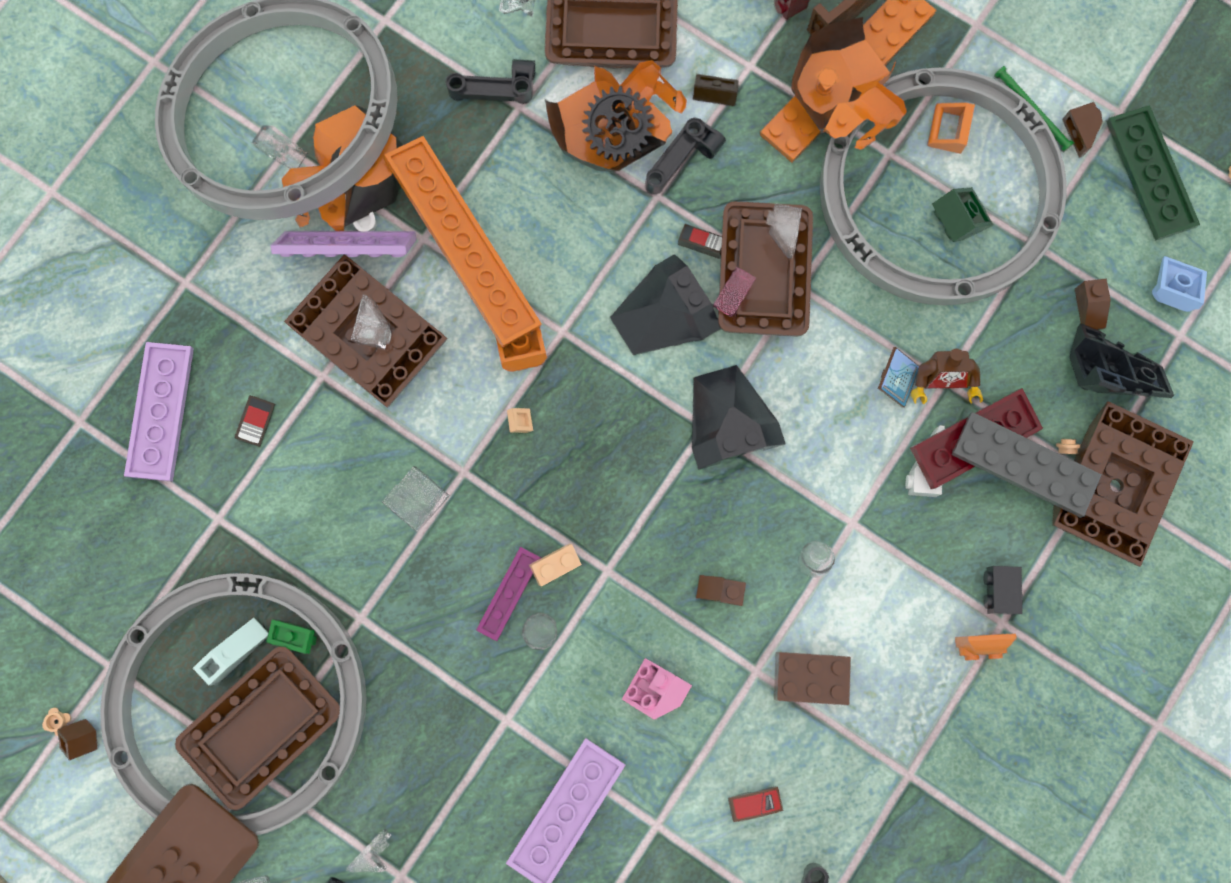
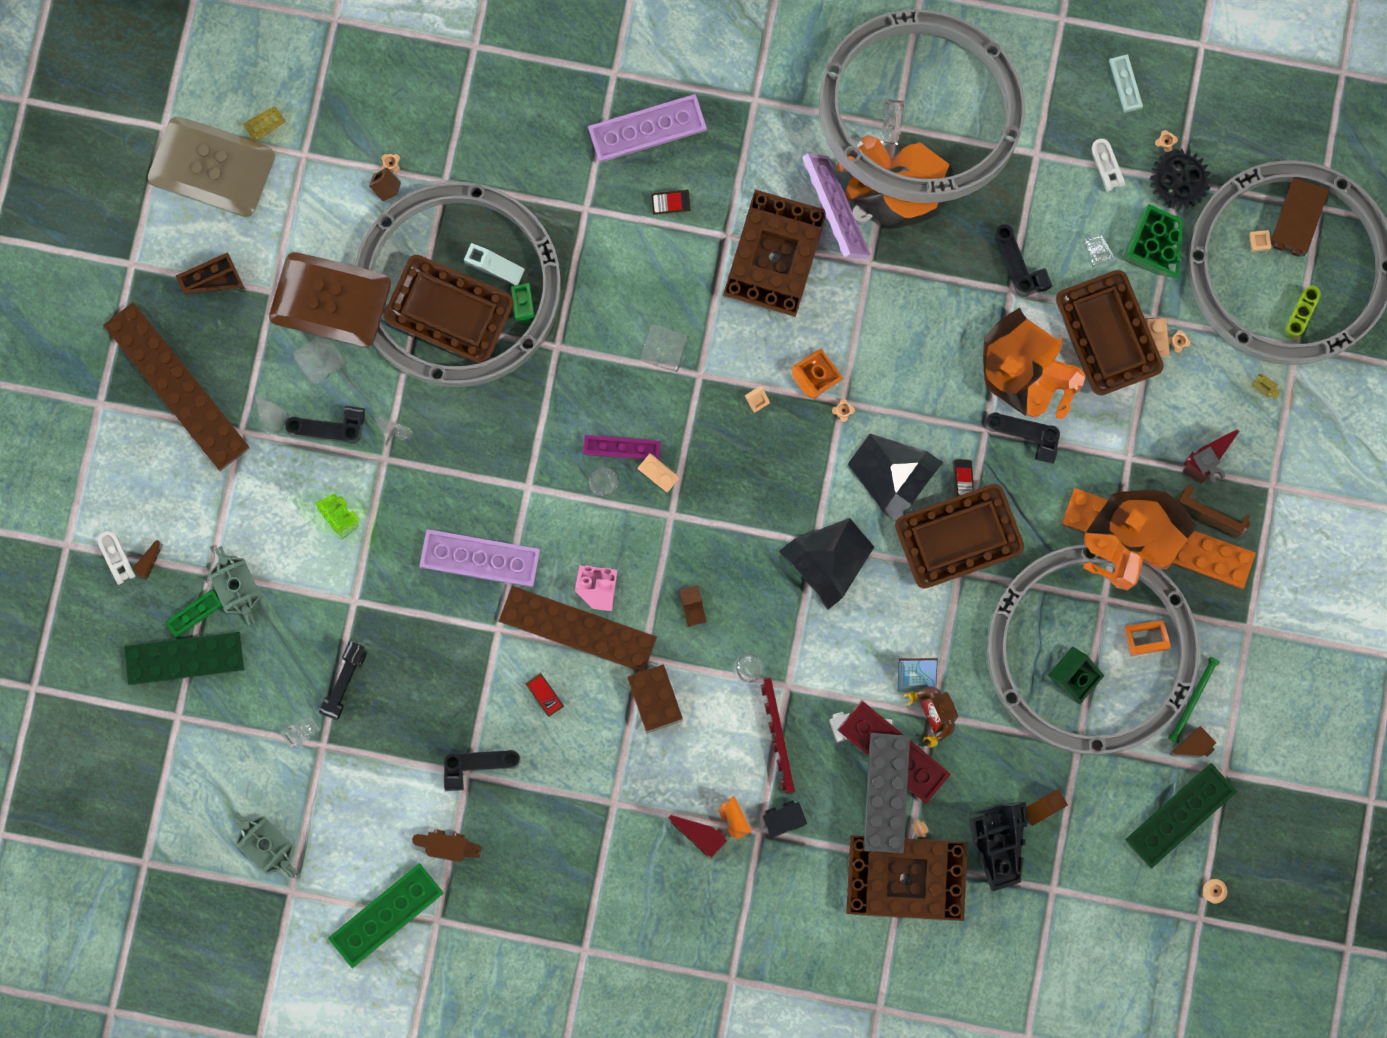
camera: 65 degrees right, 0 degrees up
(370, 325) = (779, 255): clear slope -> none
(462, 241) = (876, 294): orange plate -> none
(572, 327) = (843, 405): none -> light nougat plate
(631, 139) = (1031, 357): black gear -> none
(693, 733) = (577, 629): none -> reddish brown plate
(715, 90) = (1095, 438): dark brown slope -> none
(734, 292) = (928, 518): clear pink tile -> none
(784, 227) = (997, 535): clear slope -> none
(917, 560) = (779, 743): none -> dark red plate
(991, 691) = (704, 837): none -> dark red slope
(1180, 285) = (1093, 870): light blue slope -> none

